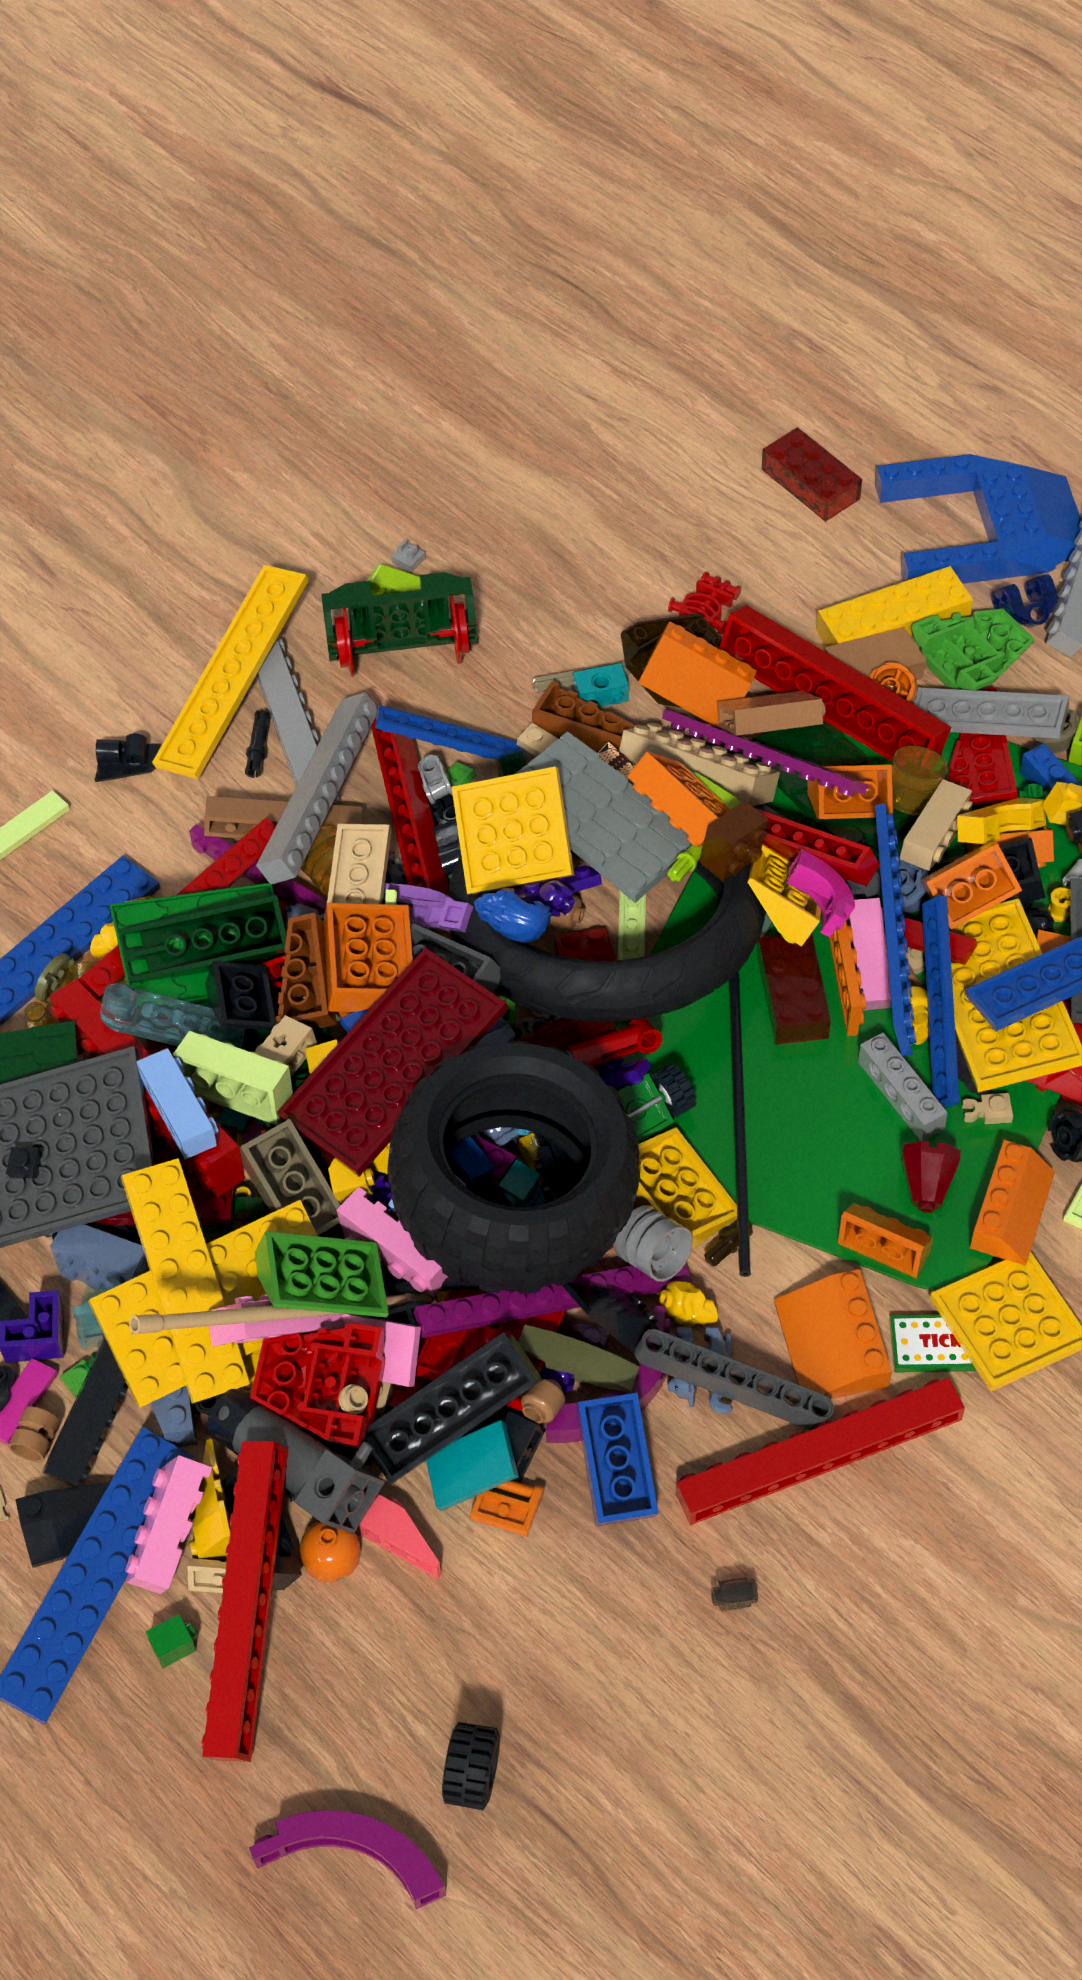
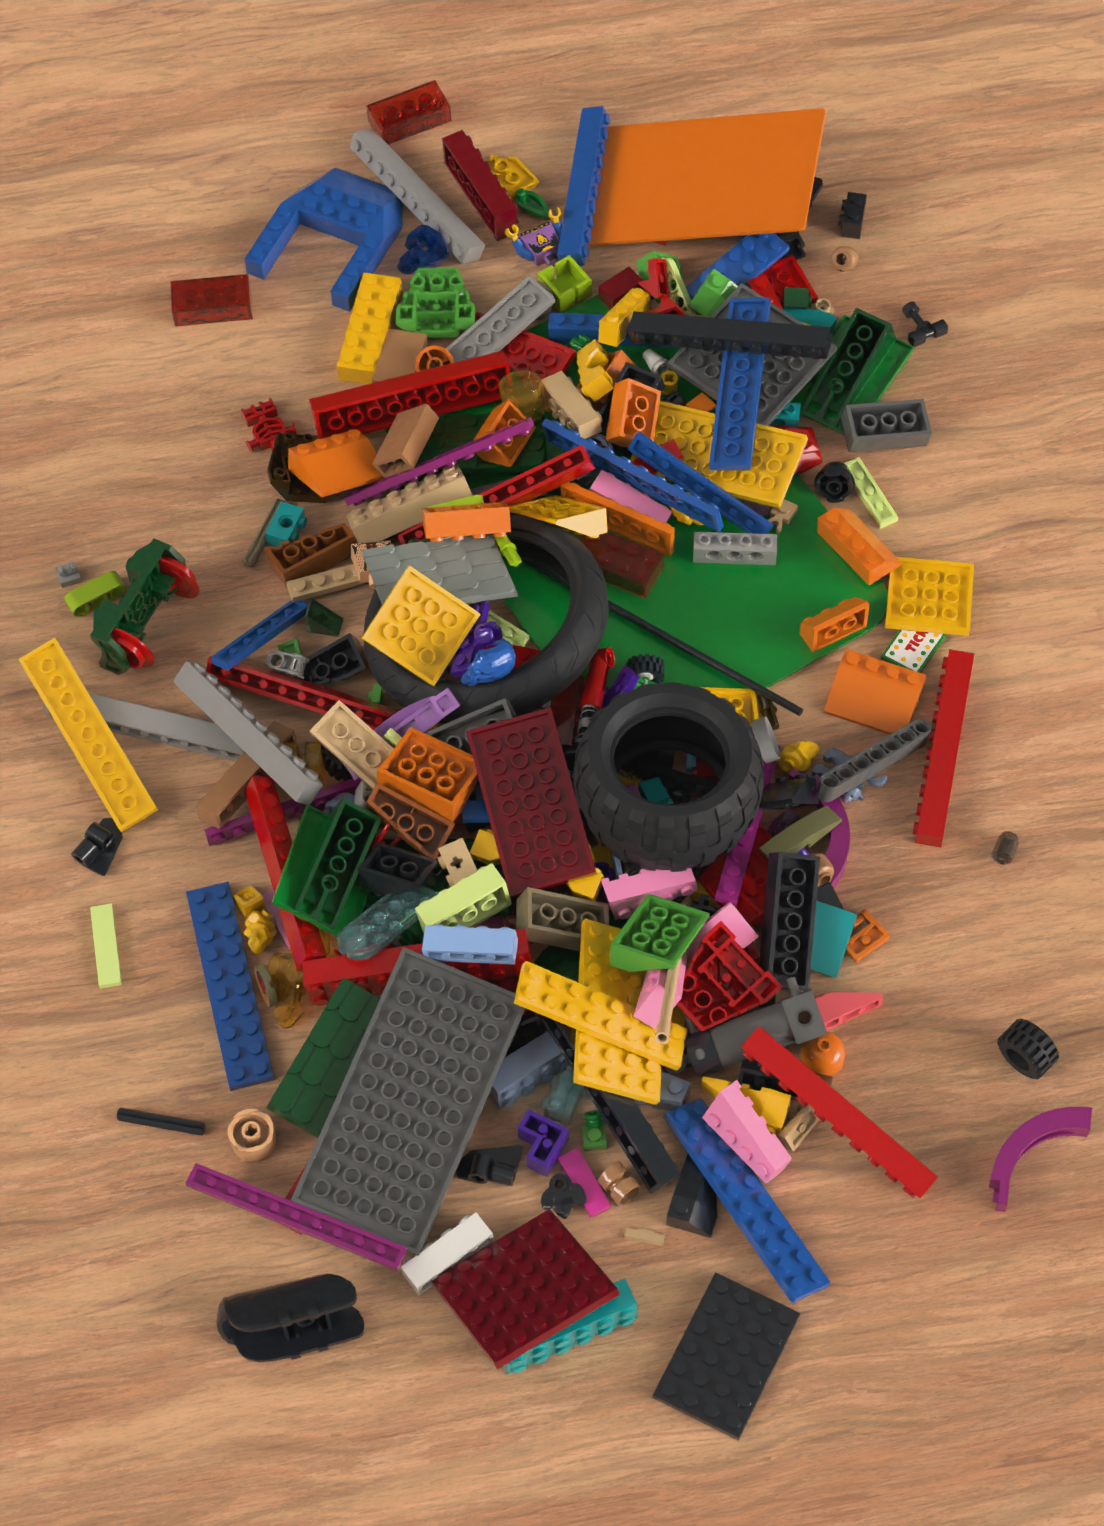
camera: 55 degrees left, 5 degrees up
(23, 1162) = (432, 1068): black plate -> none
(172, 1640) = (825, 1178): green brick -> none
(256, 751) = (163, 760): black pin -> none
(353, 1399) = (749, 970): tan plate -> none
(448, 845) = (359, 684): black pin -> none
(616, 1459) = (882, 854): blue brick -> none
(734, 841) = (523, 511): reddish brown brick -> none
(825, 887) = (582, 490): dark pink arch -> none
(929, 1173) = (808, 572): dark red cone -> none

